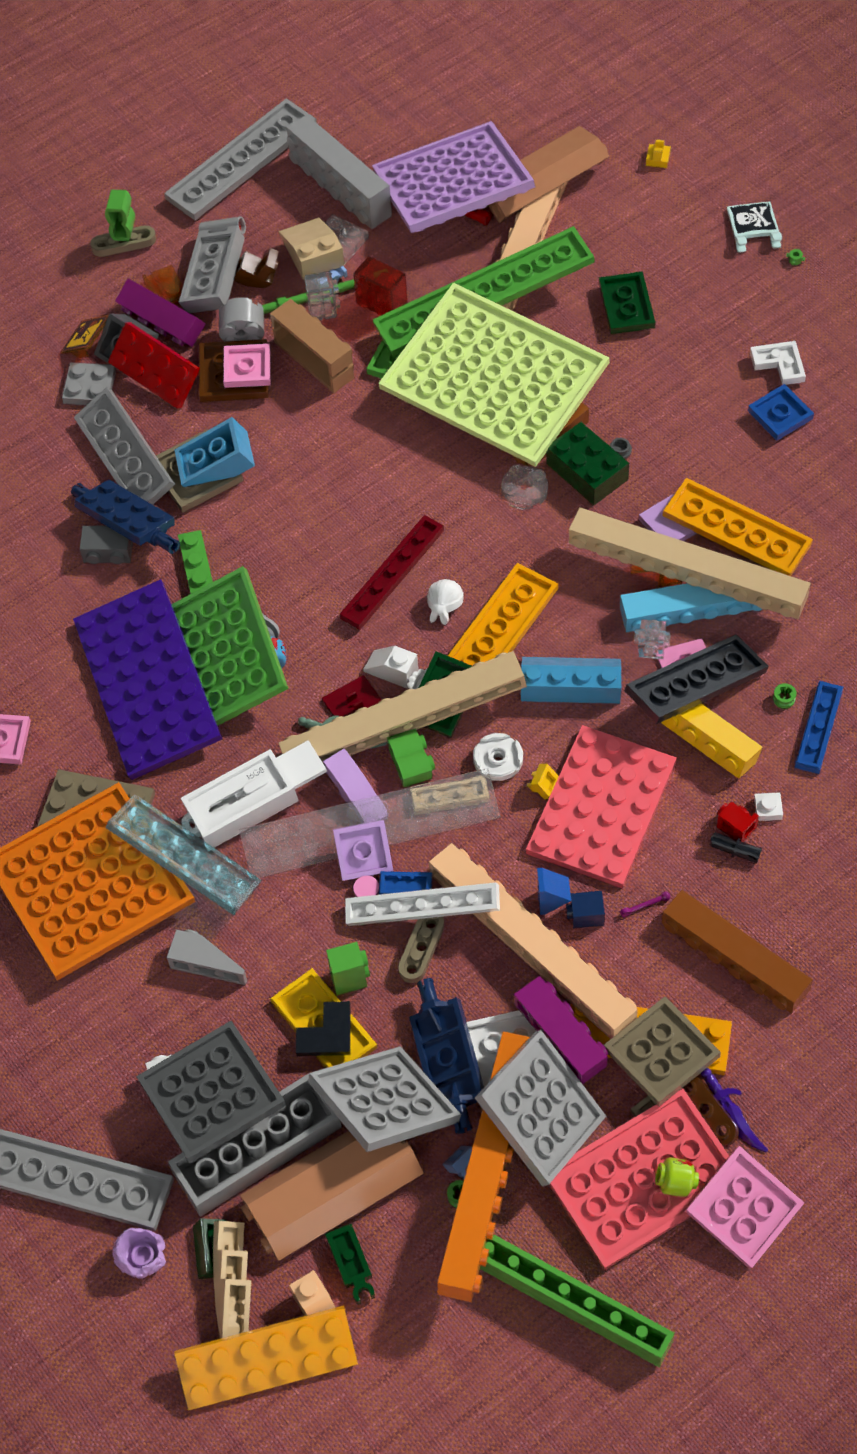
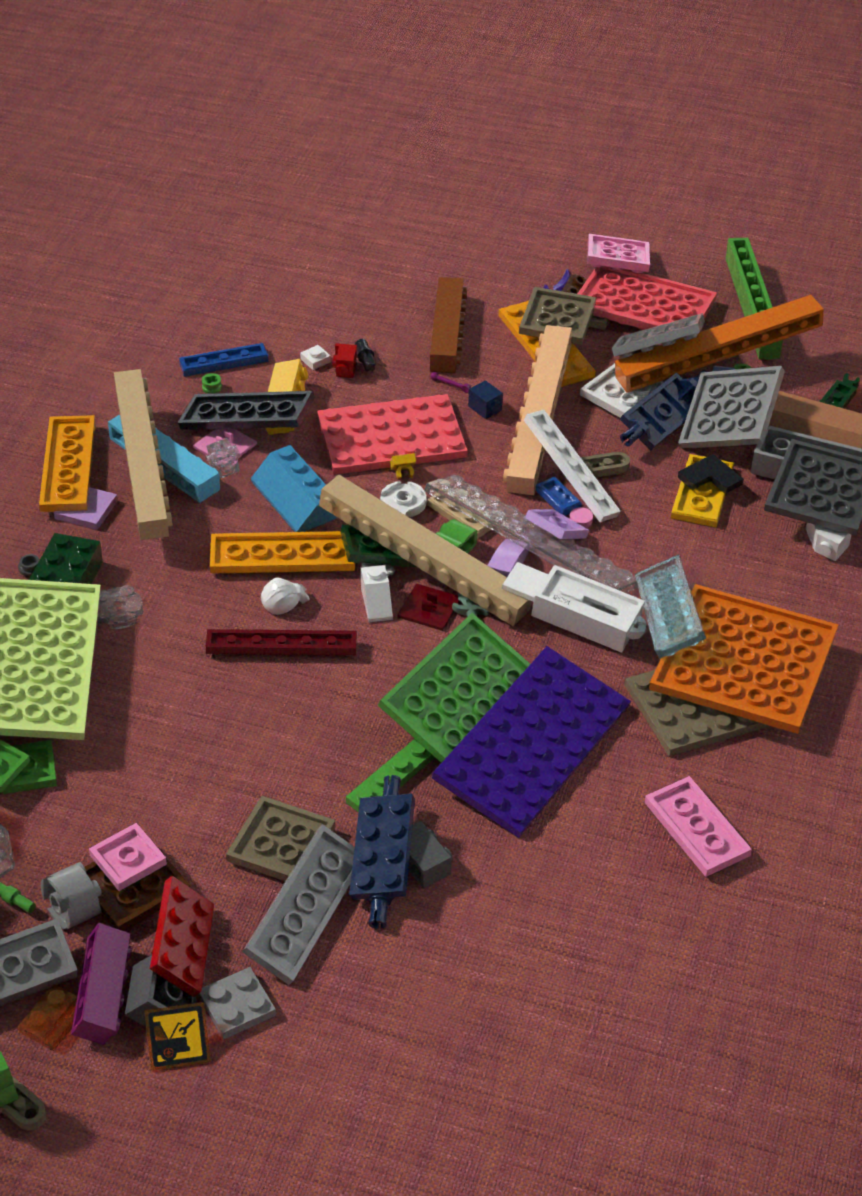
camera: 130 degrees left, 15 degrees down
(198, 956) = (730, 570): light grey slope -> none
(215, 454) = (262, 815): dark azure slope -> none
(312, 345) = (63, 817): medium nougat piece -> none
(348, 968) = (658, 480): bright green brick -> none
(552, 890) = (495, 415): blue slope -> none
(556, 1020) = (591, 362): magenta brick -> none
(676, 1177) = (634, 276): lime head -> none

